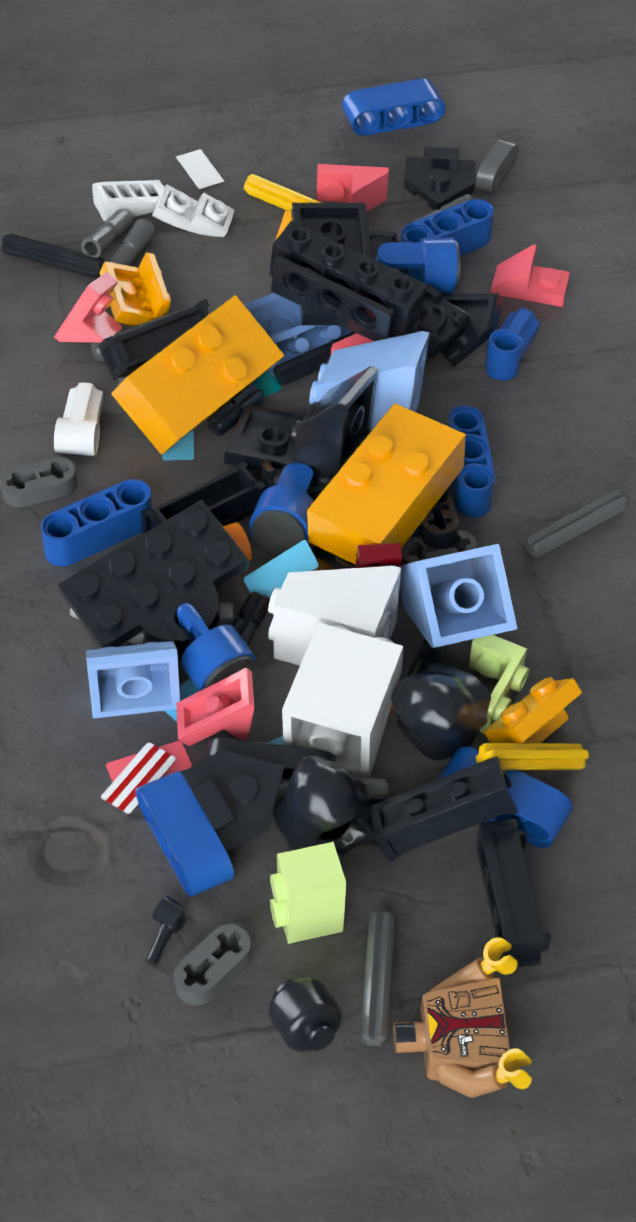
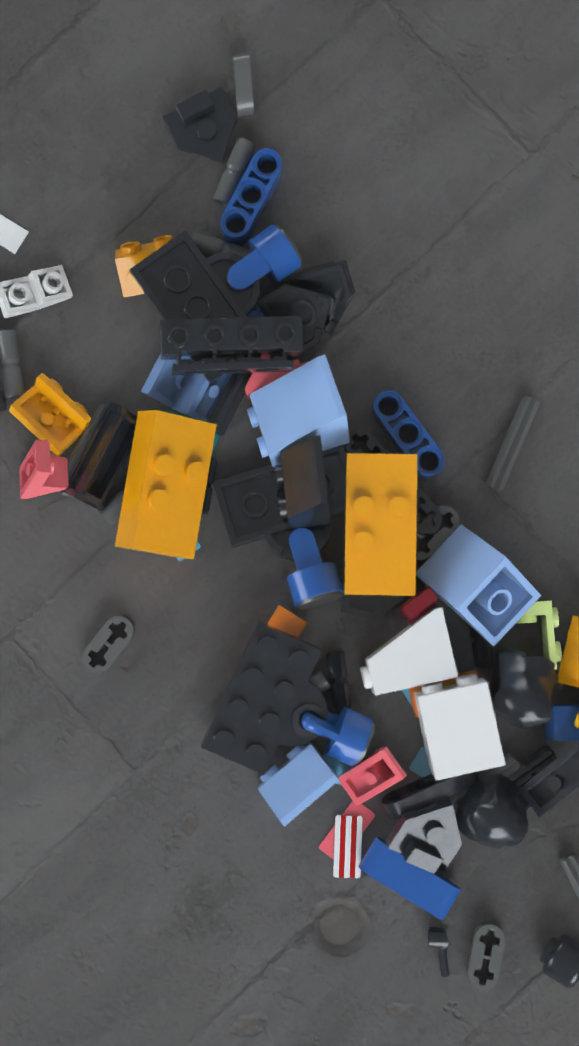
camera: 25 degrees left, 35 degrees up
(80, 428) = (105, 581): white piece -> none
(95, 522) = (168, 673): blue beam -> none
(227, 496) = (245, 599): black container -> none
(273, 574) = (338, 626): medium azure sticker -> none
(274, 193) = (102, 228): yellow axle -> none
(308, 893) = (524, 887): yellowish green brick -> none
(352, 184) = (150, 179): coral slope -> none
(393, 107) = (115, 60): blue beam -> none
(510, 344) = (369, 288): blue piece -> none
(524, 281) = (342, 204): coral slope -> none

